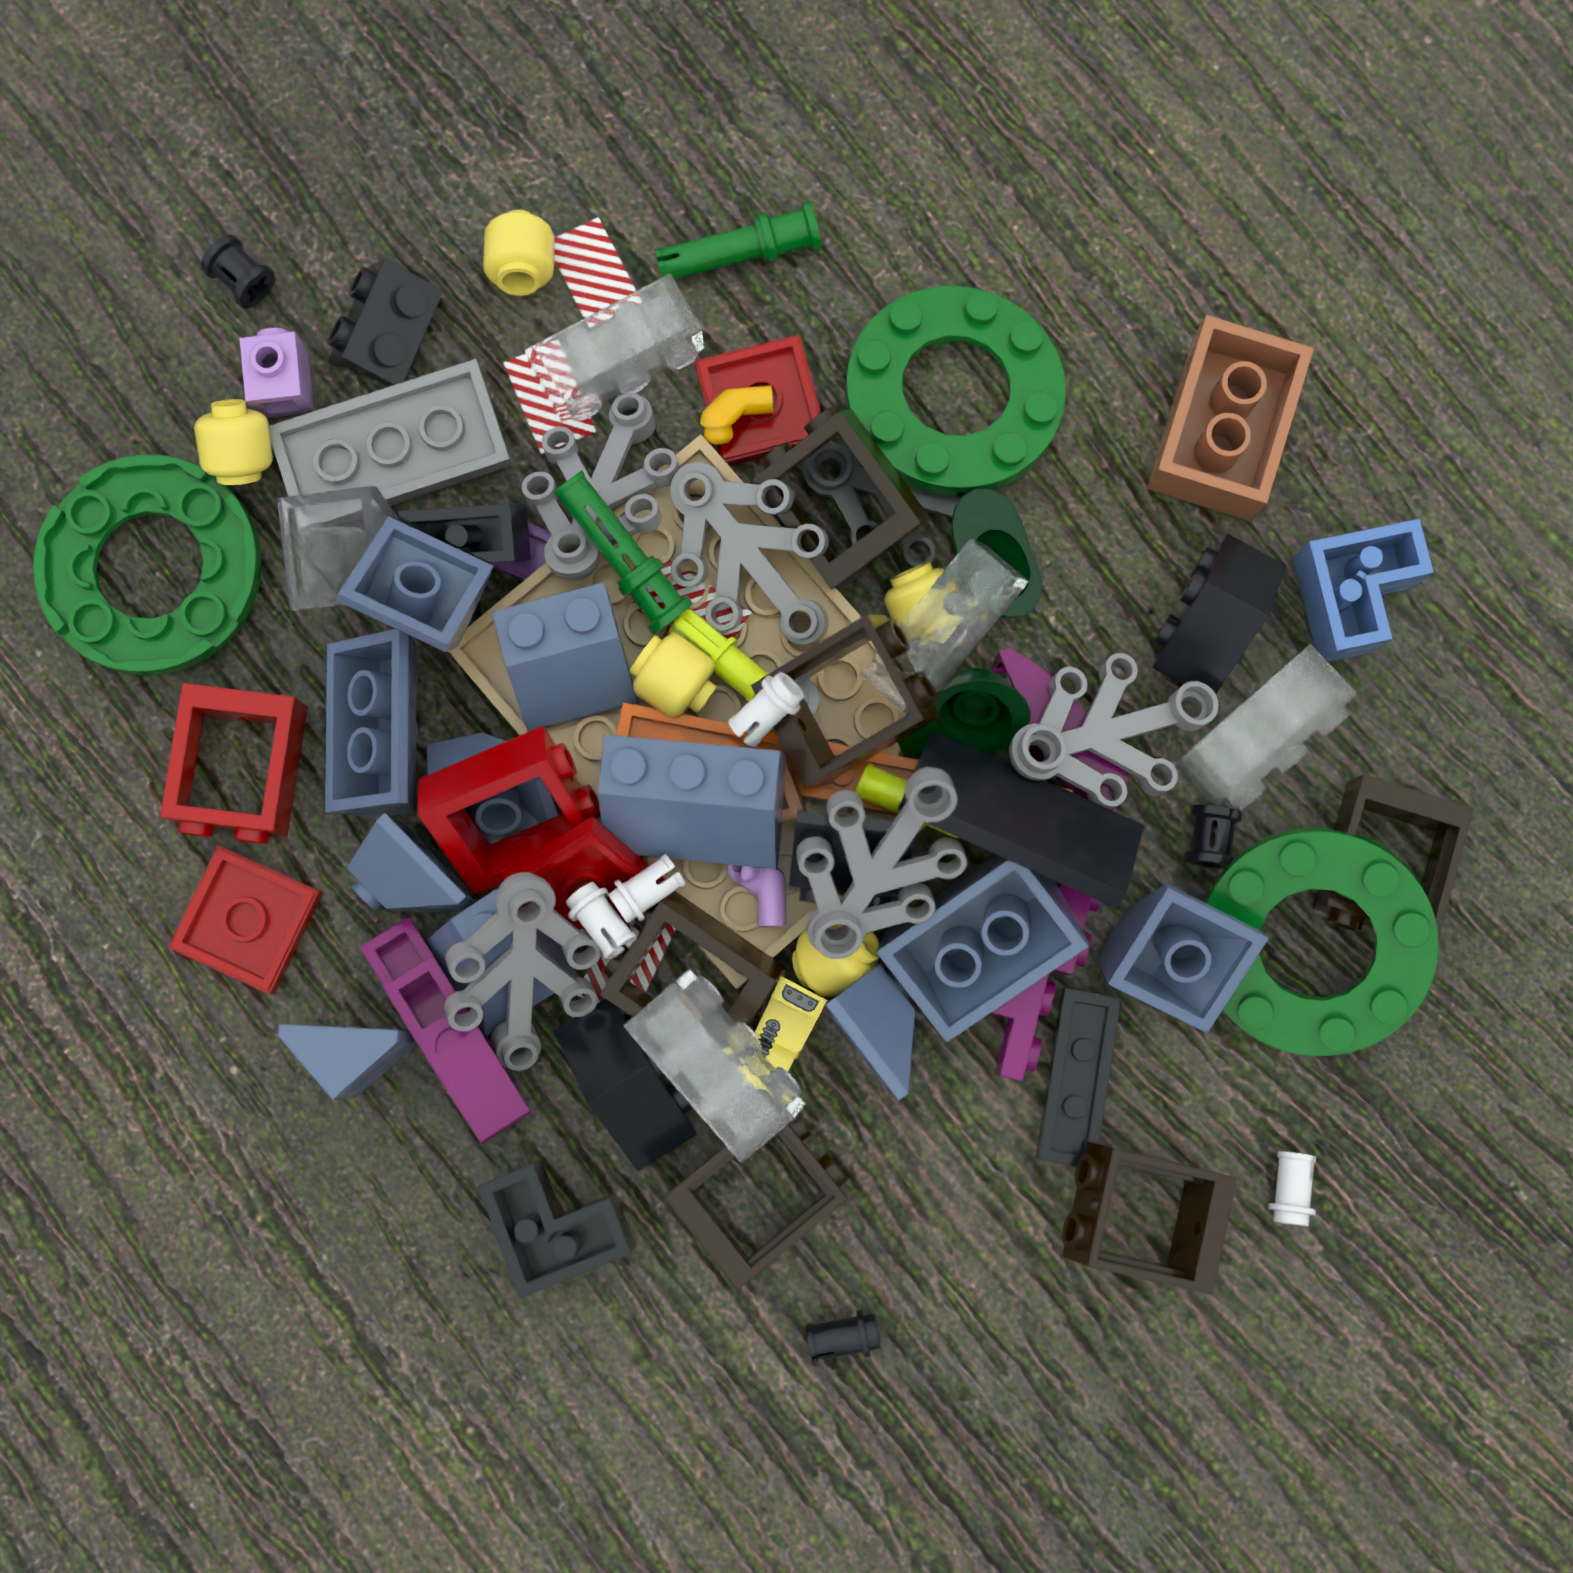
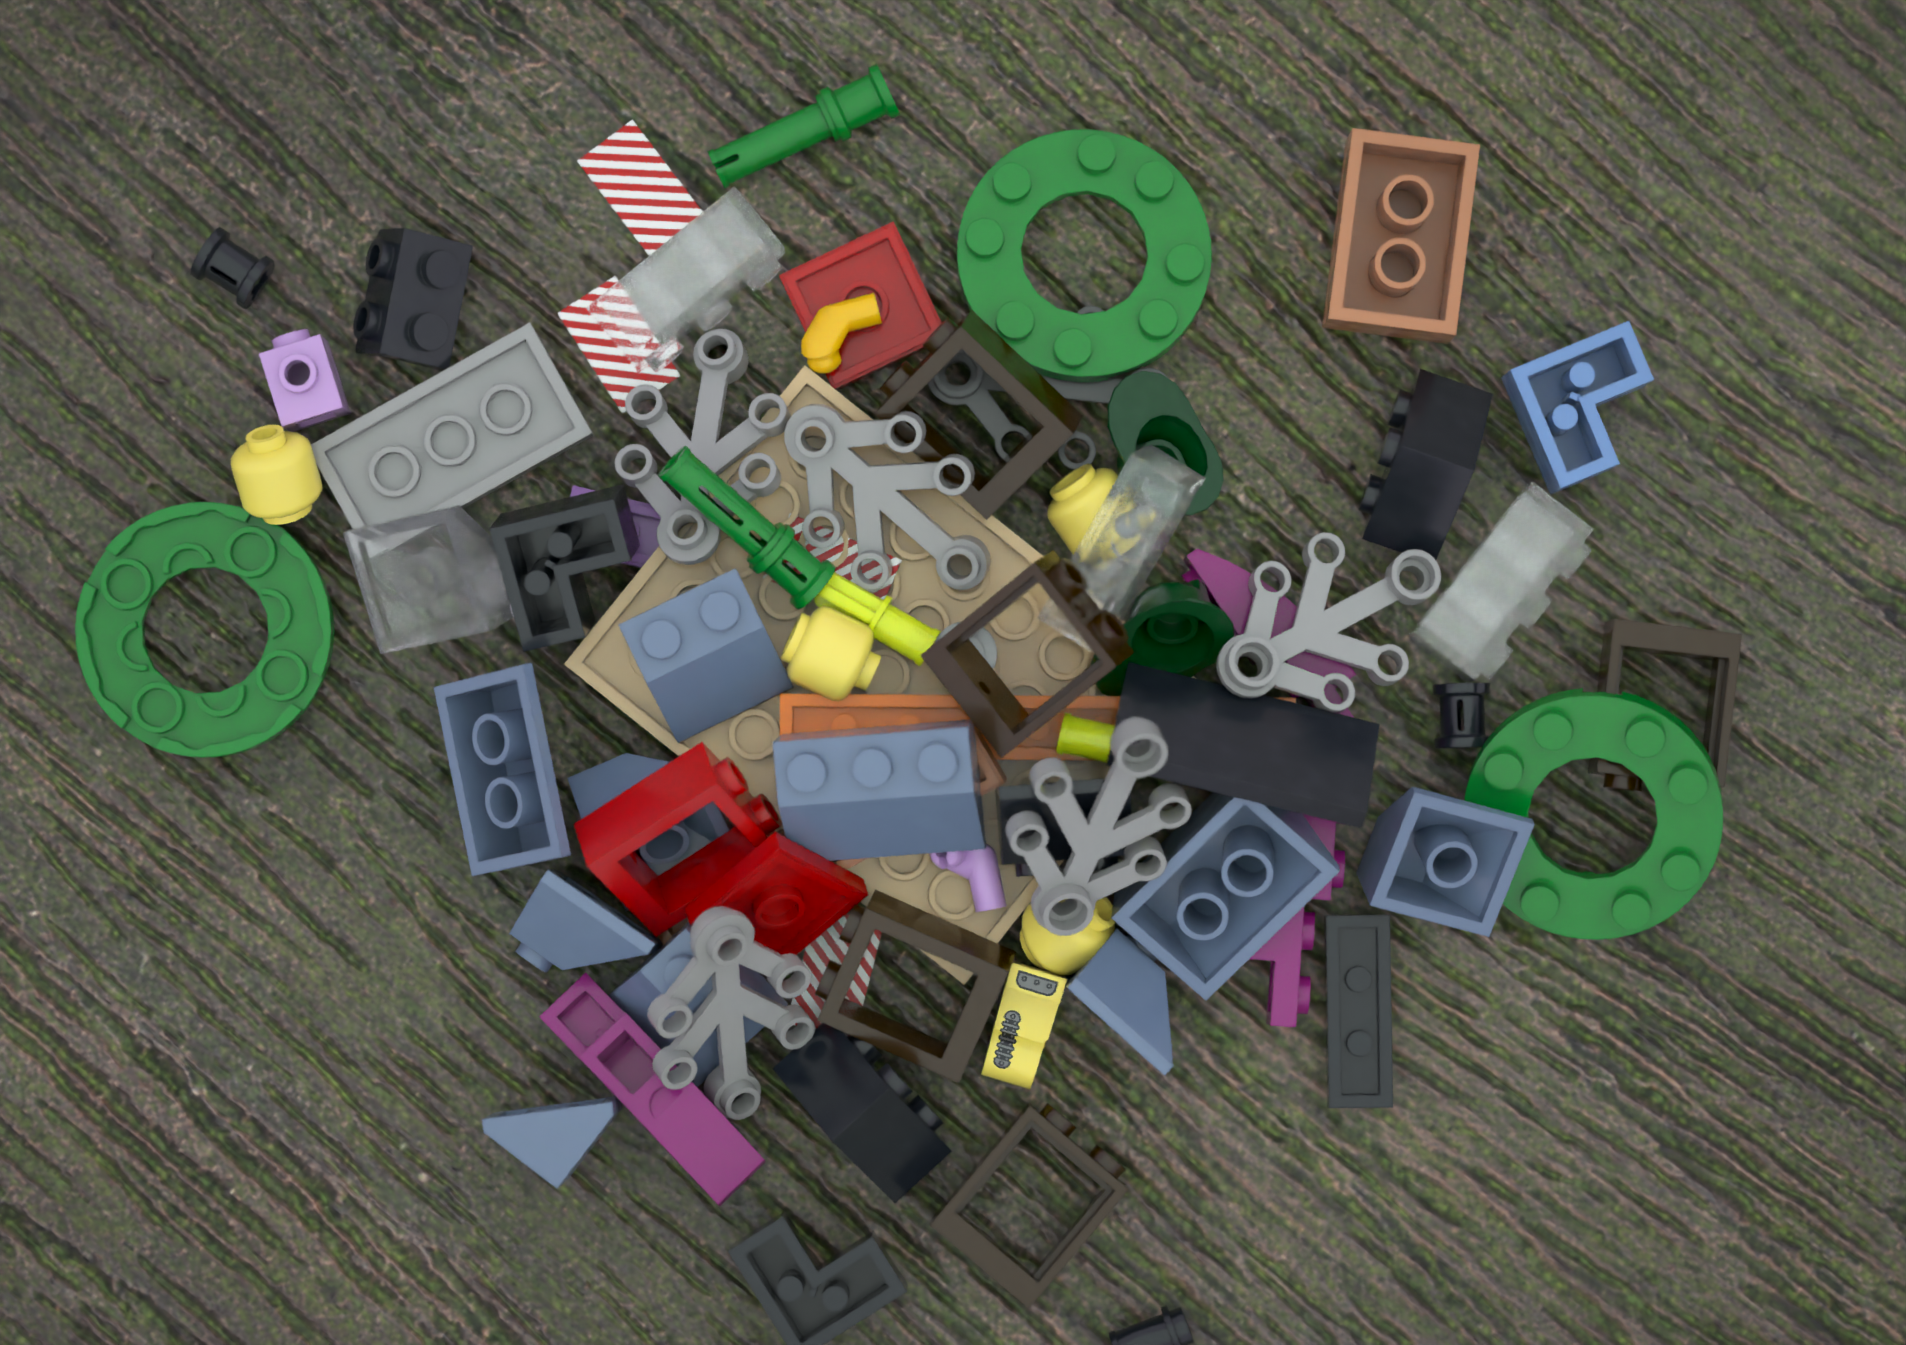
camera: 15 degrees left, 5 degrees up
(201, 701) = (354, 771): red window -> none
(245, 920) = (402, 1009): red tile -> none
(417, 585) = (531, 611): sand blue slope -> none
(518, 252) = (552, 186): light yellow head -> none
(600, 919) = (804, 940): white pin -> none
(642, 891) = (845, 900): white pin -> none
(716, 1064) = (961, 1073): clear brick -> none
(767, 708) = (939, 687): white pin -> none
(1198, 1227) = (1516, 1148): dark brown window -> none
(1293, 1189) = (1614, 1087): white pin -> none

